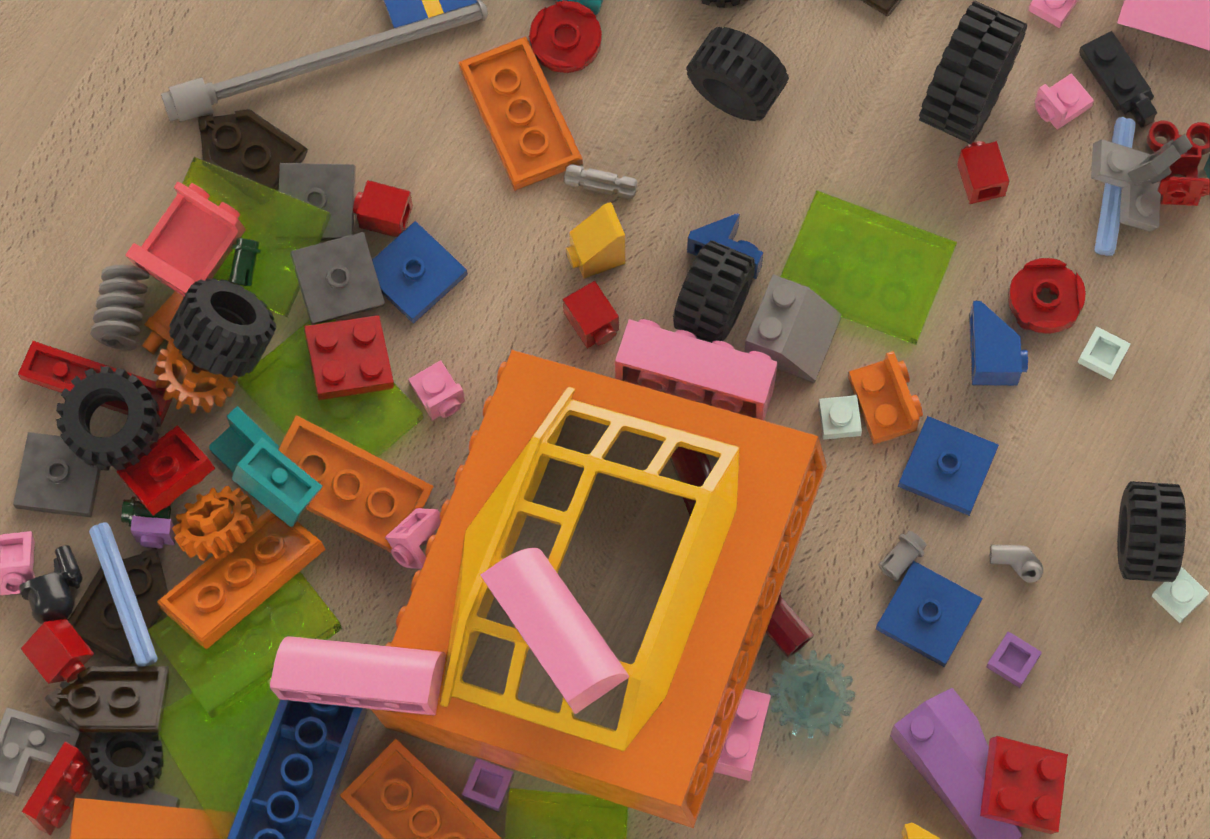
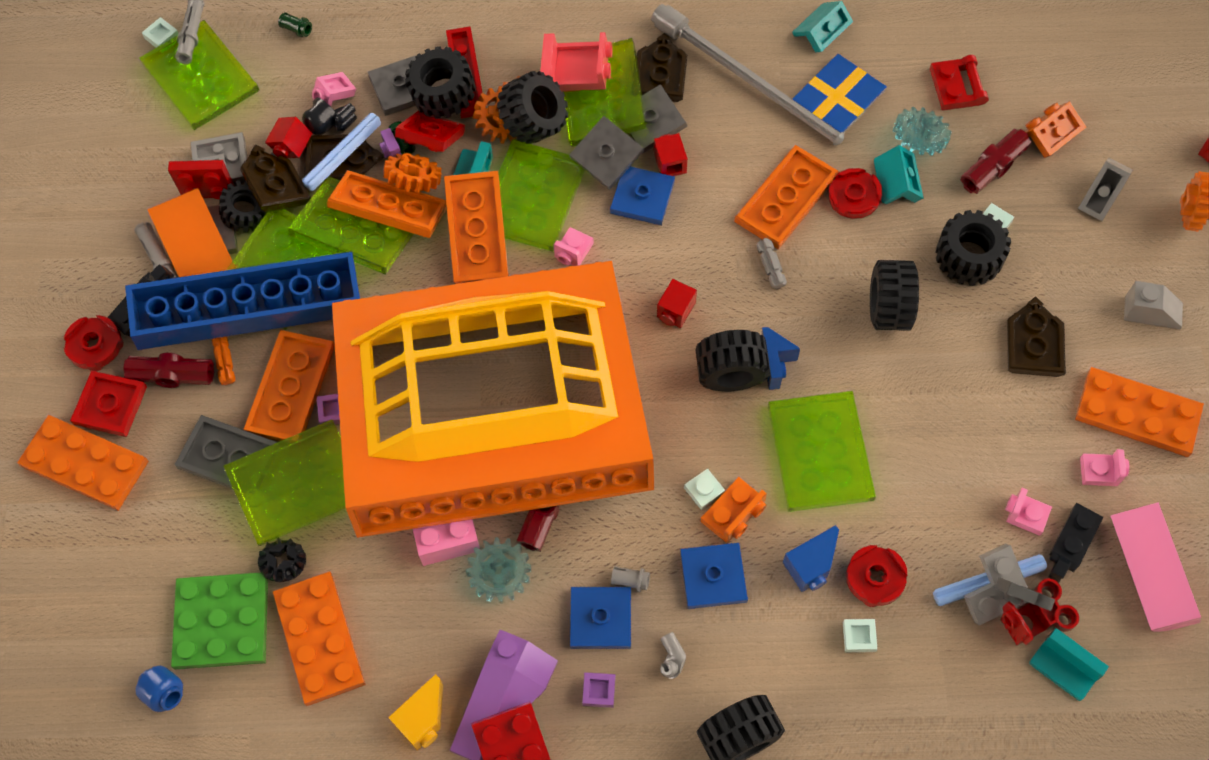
camera: 60 degrees right, 5 degrees down
(117, 304) = (516, 55): light grey piece -> none
(244, 261) = (584, 99): dark green pin -> none
(276, 481) = (450, 182): teal panel -> none
(348, 357) = (560, 186): red plate -> none
(358, 675) = (345, 284): bright pink brick -> none
(411, 534) = (463, 275): bright pink bracket -> none
(555, 627) = (419, 365): bright pink brick -> none
(597, 242) = (725, 280): yellow slope -> none
(696, 368) = (672, 380): bright pink brick -> none
(793, 328) = (744, 425): light grey slope -> none
(972, 72) = (997, 432): black tyre -> none
(983, 171) = (937, 486): red brick -> none

